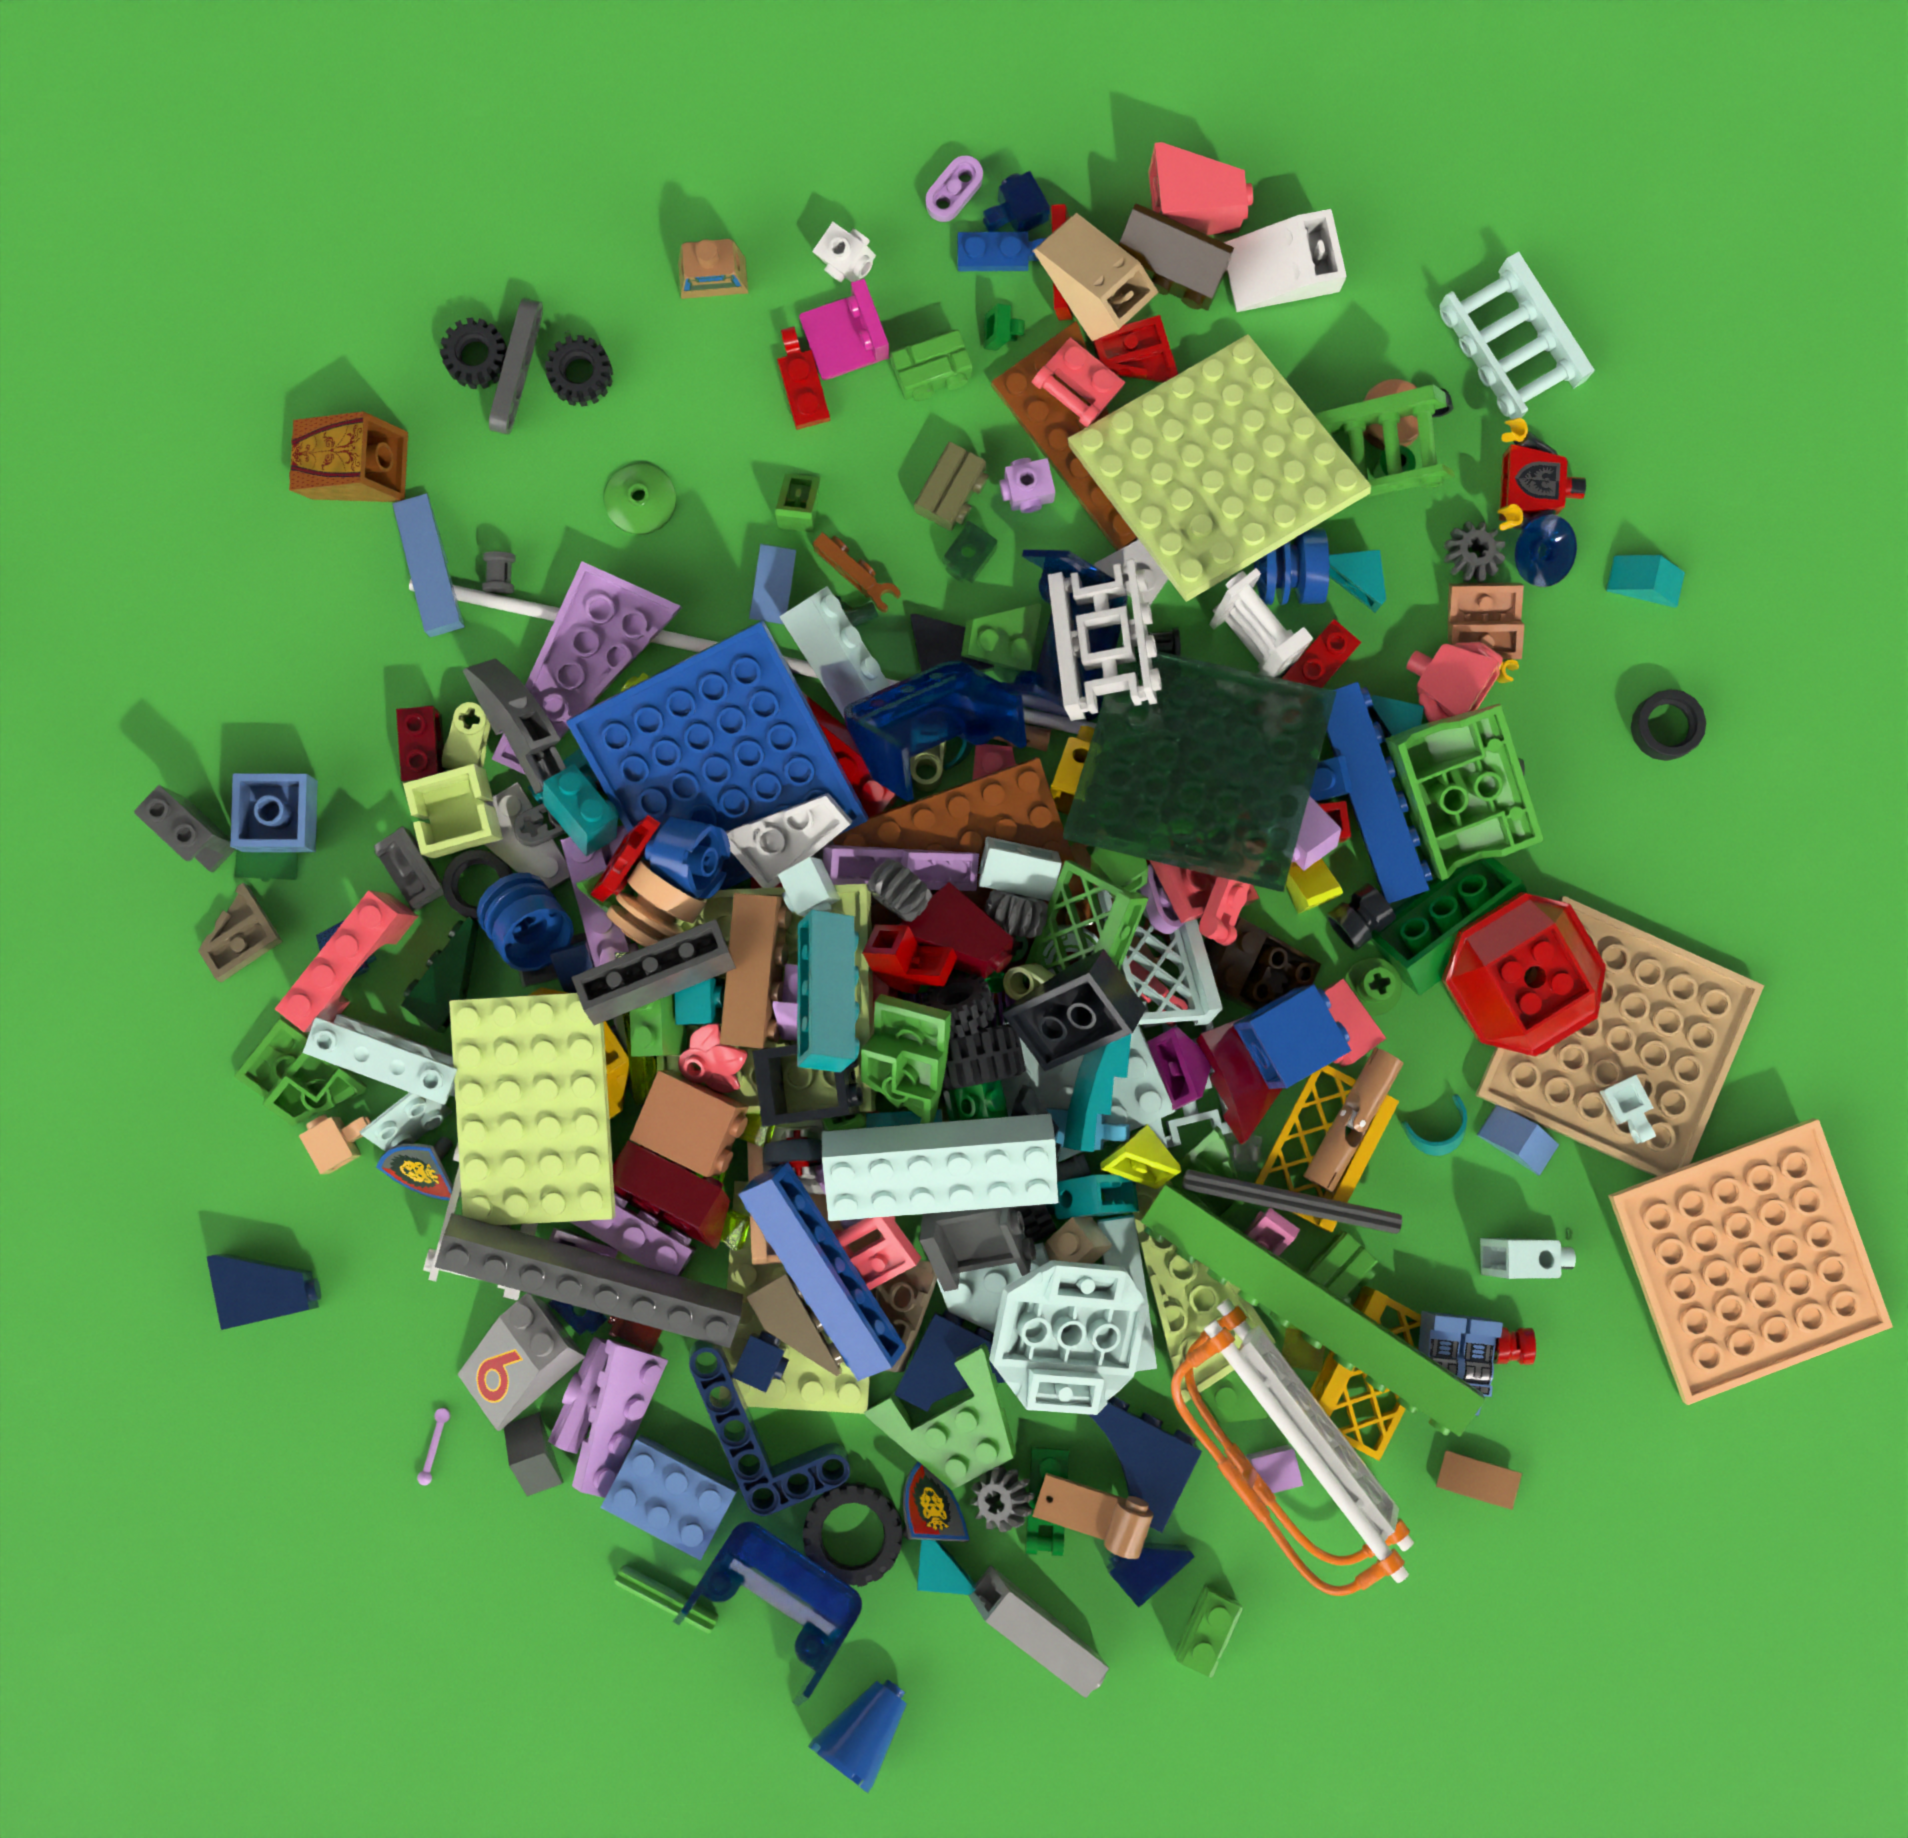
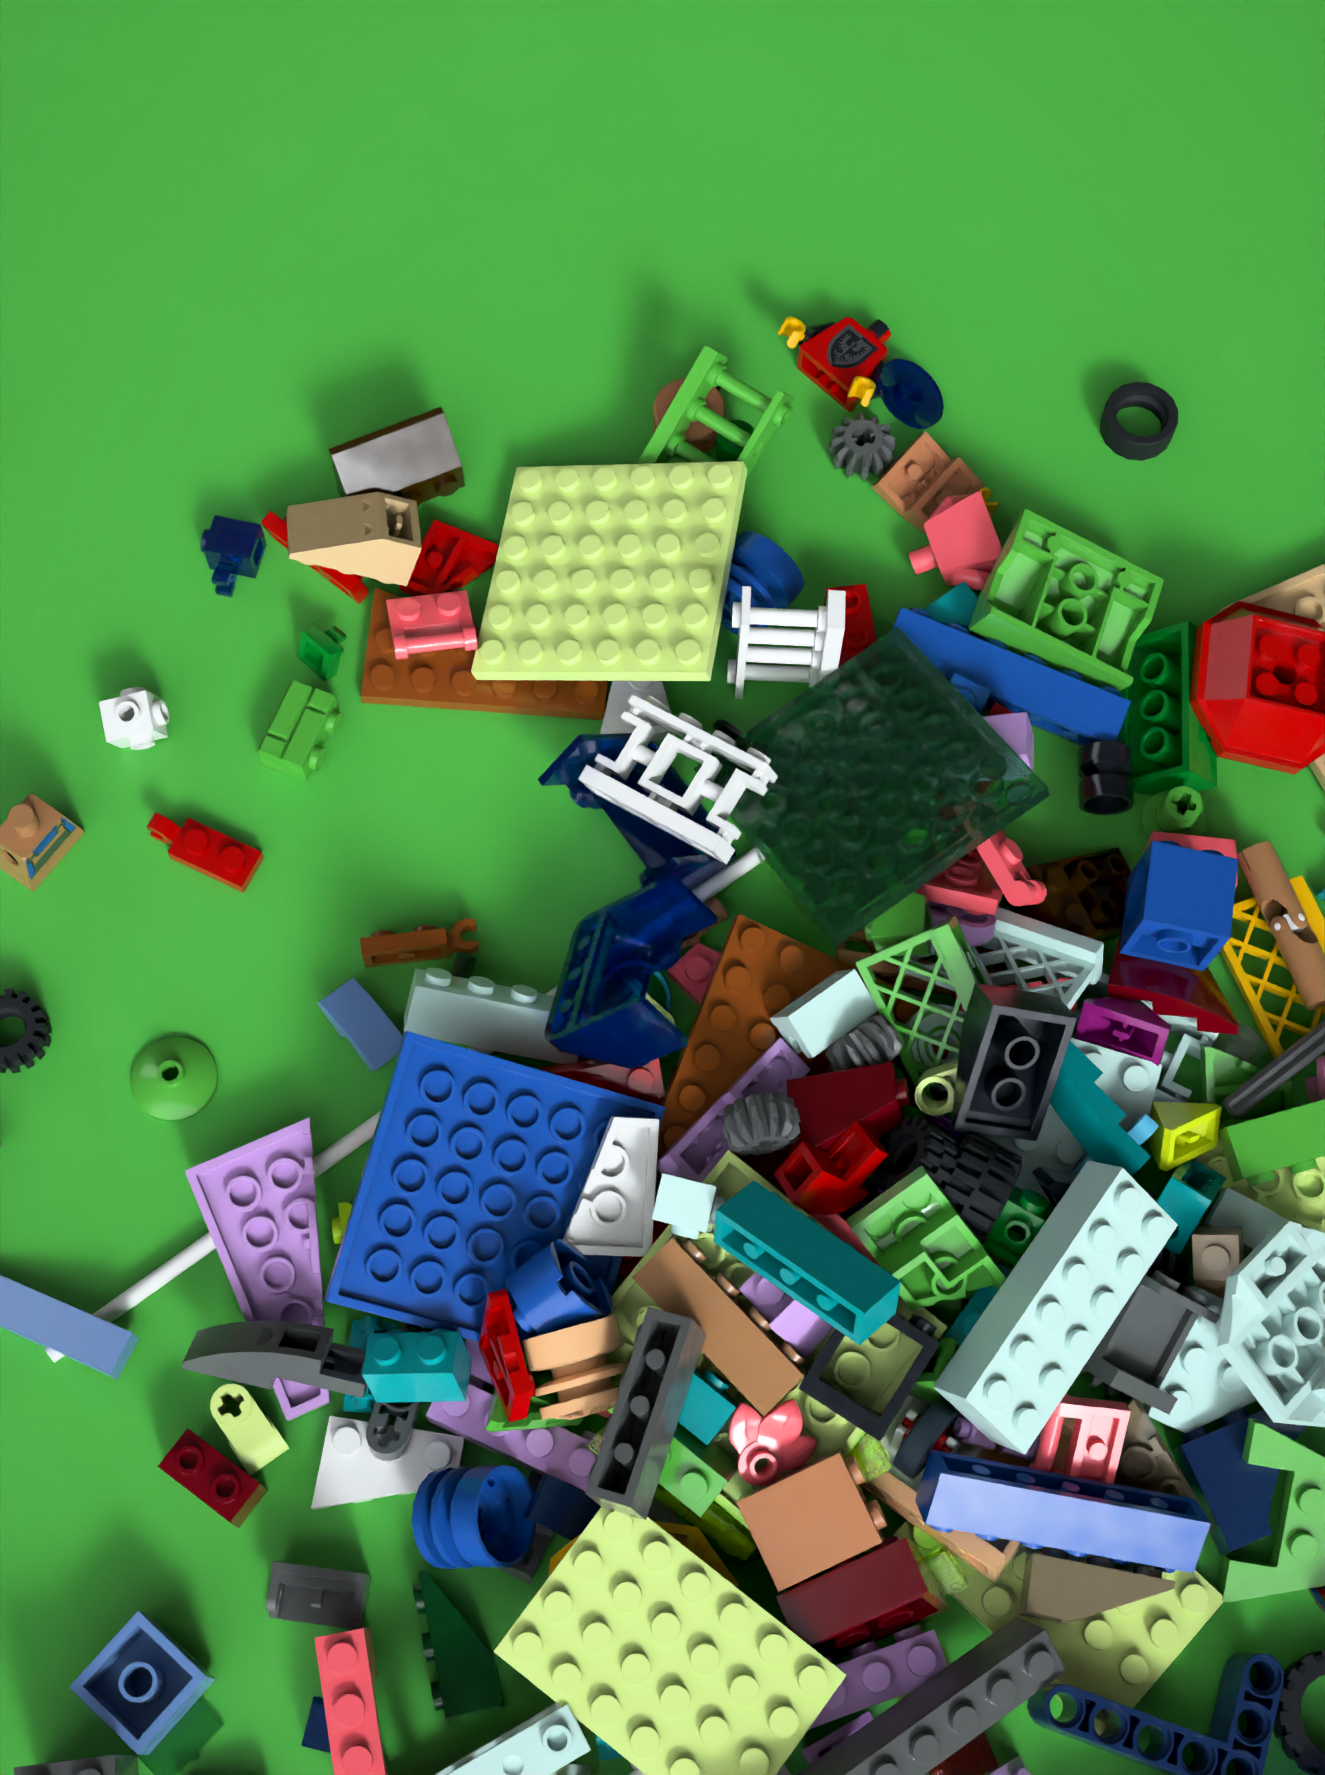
camera: 45 degrees left, 15 degrees down
(456, 811) = (305, 1496): yellowish green piece -> none
(456, 868) = (358, 1541): black tyre -> none
(498, 572) = (119, 1261): dark grey bush -> none
(761, 1361) = (1099, 1654): dark blue brick -> none
(798, 503) = (312, 942): bright green slope -> none
(845, 333) = (203, 774): dark pink bracket -> none
(941, 642) = (551, 923): black wing -> none
(951, 487) = (421, 803): olive brick -> none
(952, 189) = (168, 593): lavender plate -> none
(969, 568) = (488, 820): clear green brick -> none
(995, 251) = (255, 600): blue plate -> none
(1003, 638) = (596, 868): bright green wing -> none
(1027, 485) = (480, 737): lavender brick -> none
(1070, 769) = (769, 901): yellow torso -> none
(1198, 190) = (359, 400): coral slope -> none
(1286, 262) = (488, 388): white slope -> none
(1312, 886) = (1060, 781): neon yellow slope -> none
(1360, 575) = (811, 543): teal slope -> none
(1534, 308) = (719, 249): light aqua fence -> none
(1646, 578) = (998, 344): teal slope -> none

